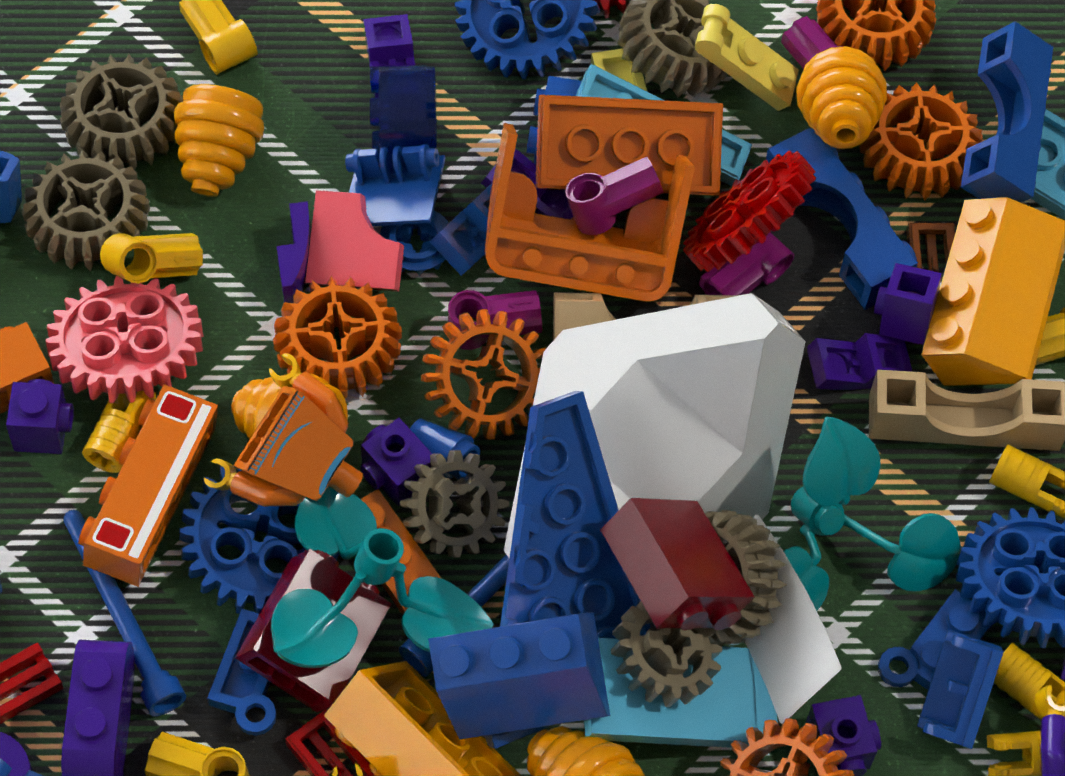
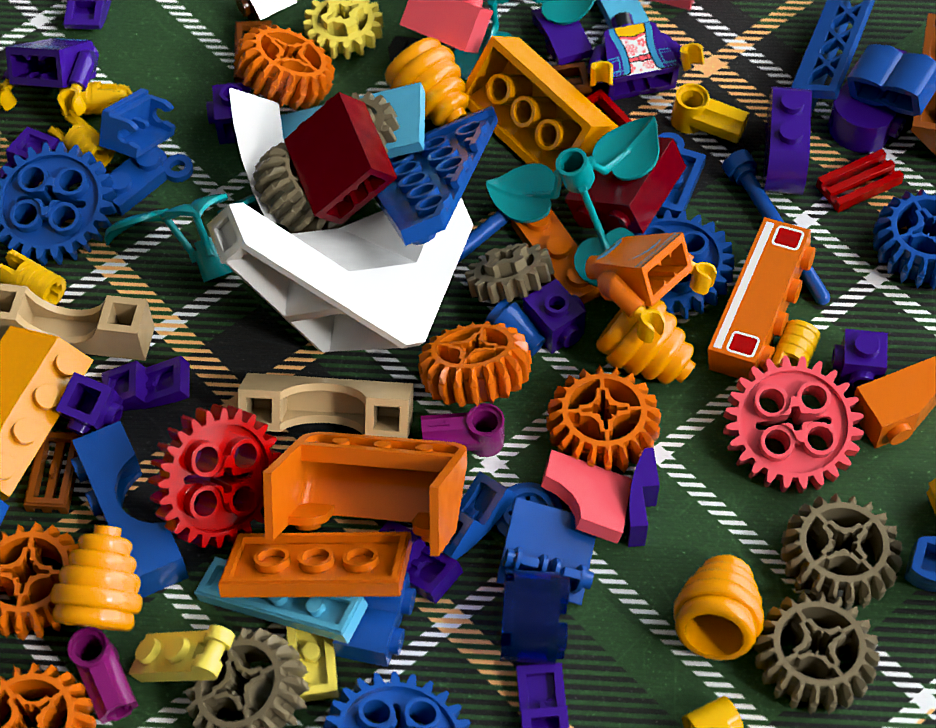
camera: 170 degrees left, 5 degrees down
(153, 256) = (785, 484): yellow piece -> none
(520, 675) = (471, 106): blue slope -> none
(598, 198) = (336, 514): magenta piece -> none

